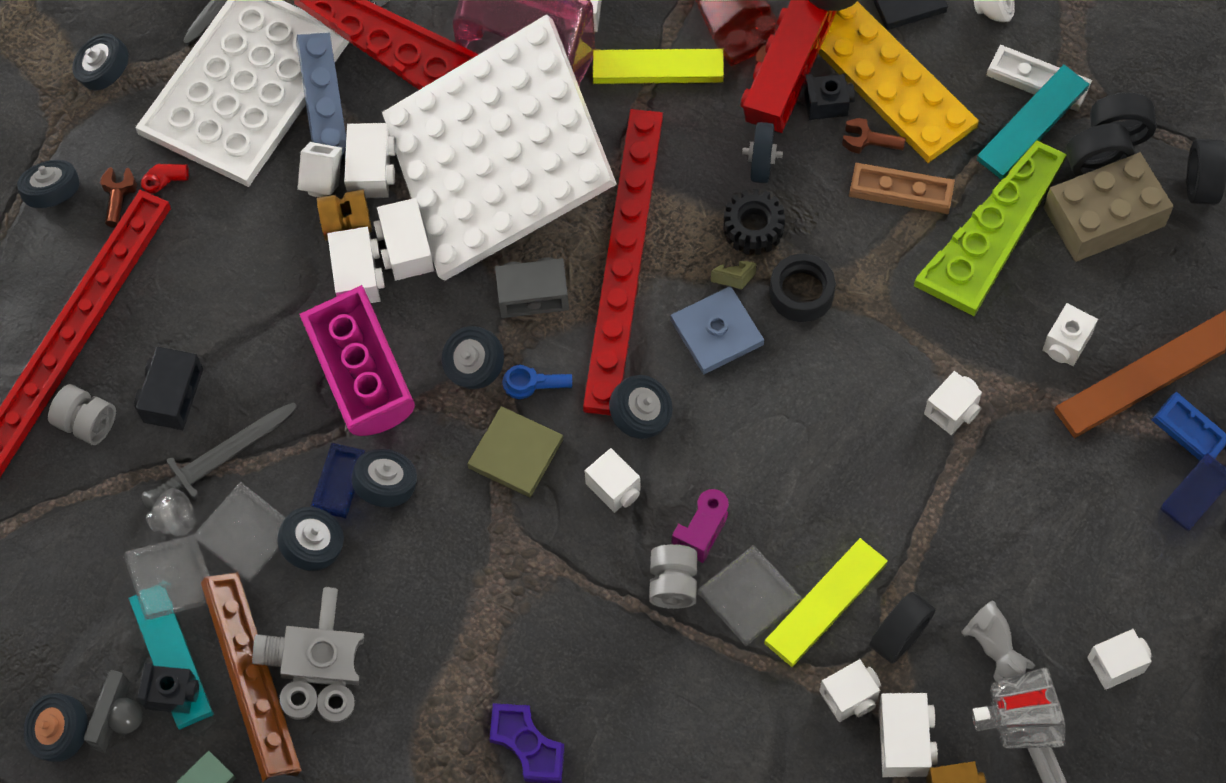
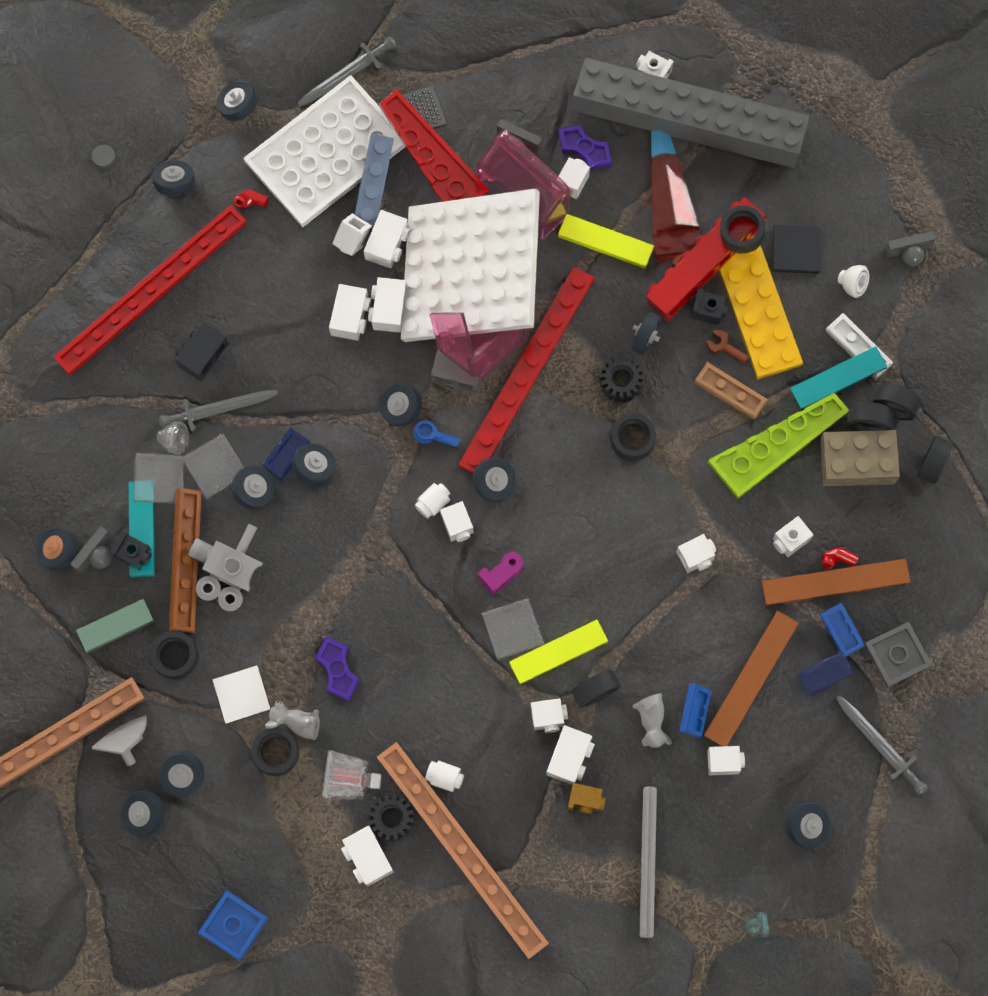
camera: 20 degrees right, 10 degrees up
(79, 413) = (140, 348): light grey wheel -> none
(116, 191) = (216, 198): copper bar -> none
(332, 210) = (347, 272): pearl gold wheel -> none
(358, 363) = (325, 380): dark pink brick -> none
(515, 451) = (404, 477): olive tile -> none
(523, 240) = (476, 352): none -> clear pink windscreen
(568, 465) = (432, 500): none -> white brick
(673, 575) = (469, 598): light grey wheel -> none
(717, 330) = (566, 444): sand blue plate -> none
(734, 276) = (593, 411): olive tile -> none
(1024, 712) = (647, 770): clear torso -> none
(1049, 607) = (695, 710): none -> blue plate
(1102, 540) = (751, 679): none -> dark orange tile
(1132, 341) = (838, 554): none -> red arm

